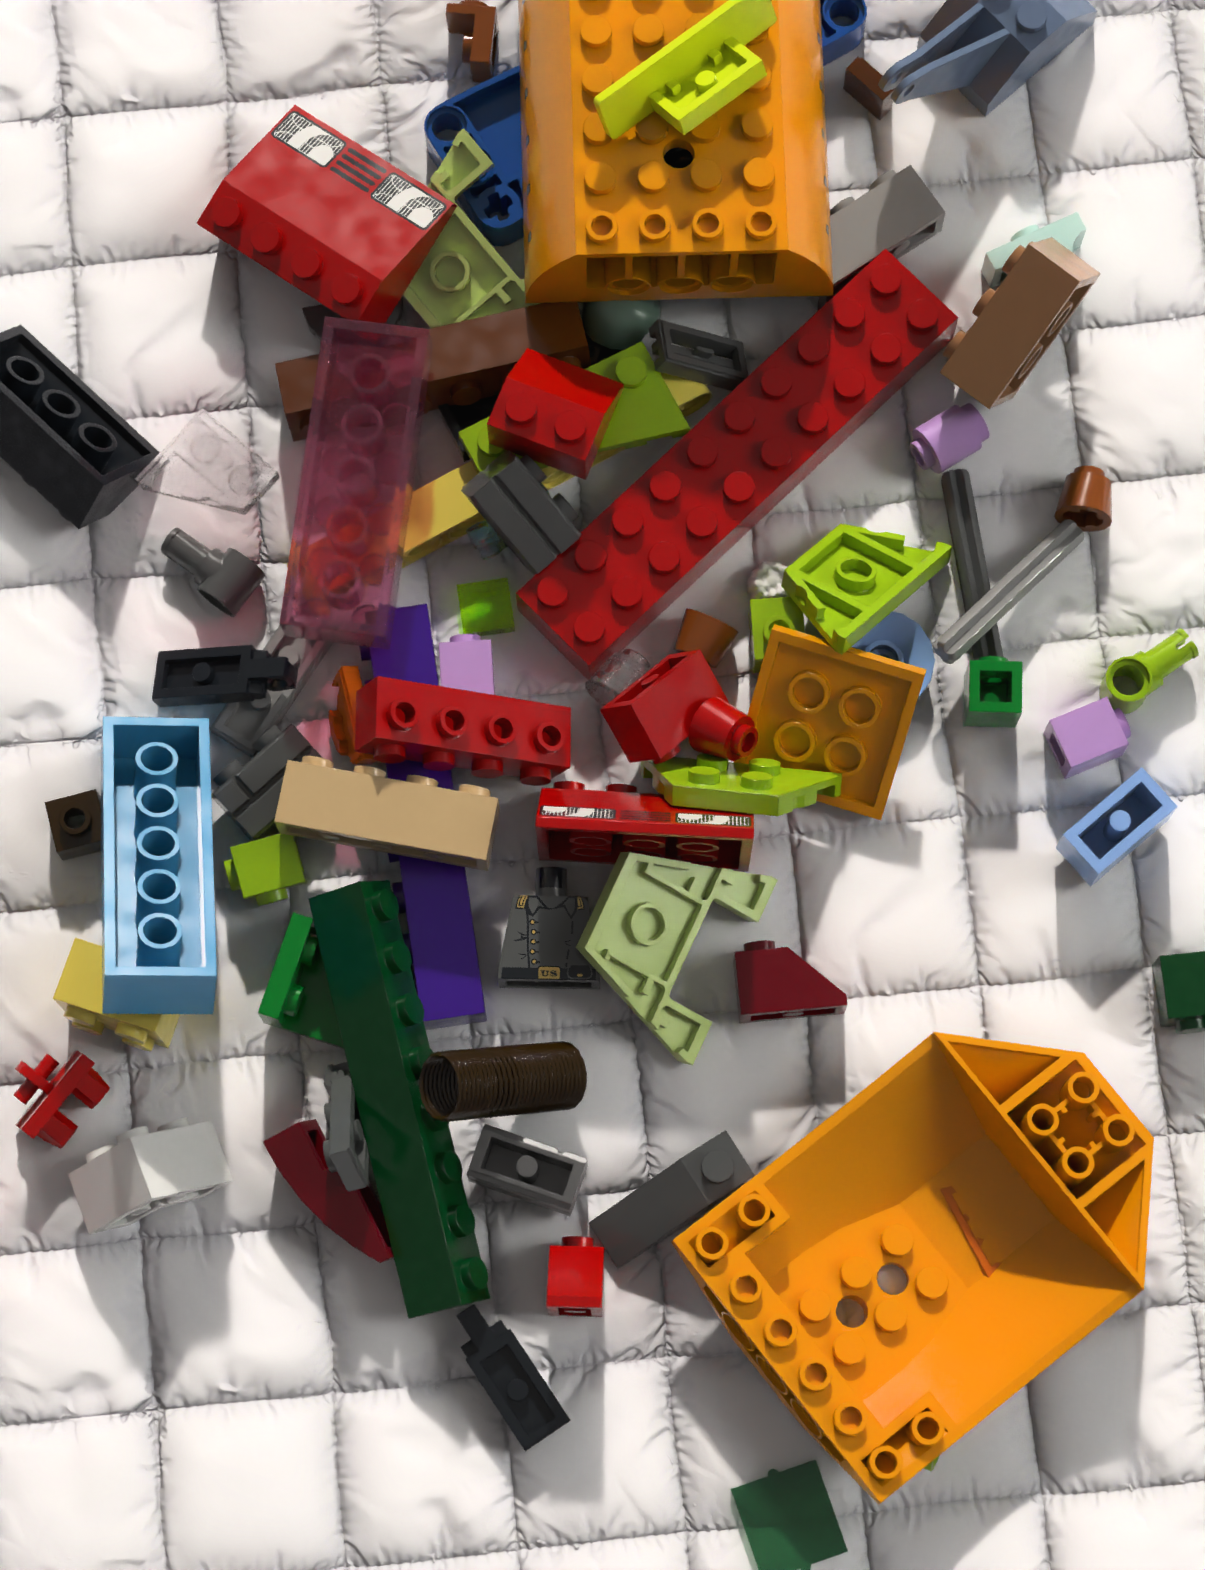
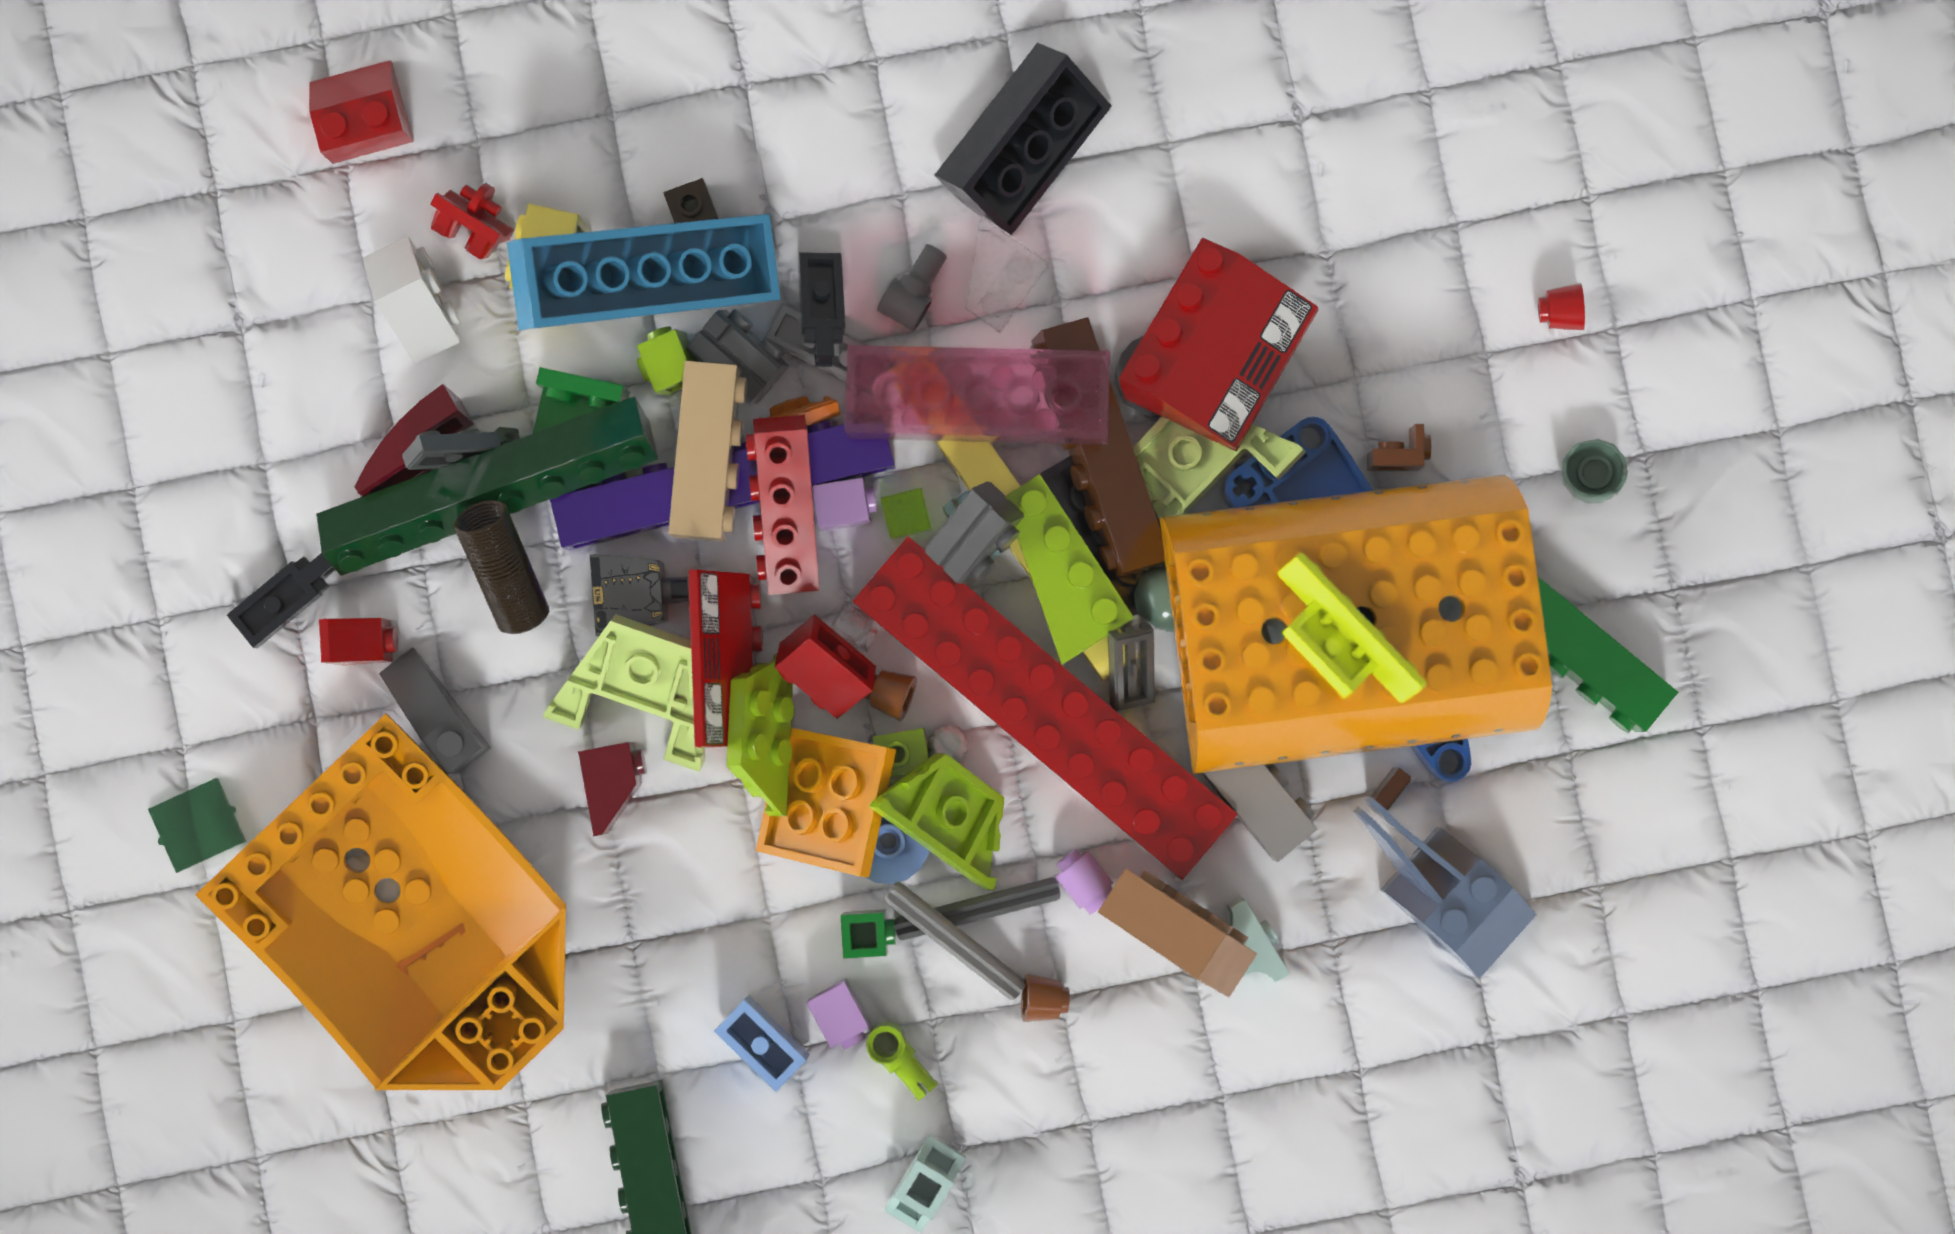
camera: 85 degrees right, 10 degrees up
(527, 1169) = (440, 594): flat silver brick -> none
(553, 412) = (1059, 551): red slope -> none
(722, 730) = (807, 716): red hat -> none

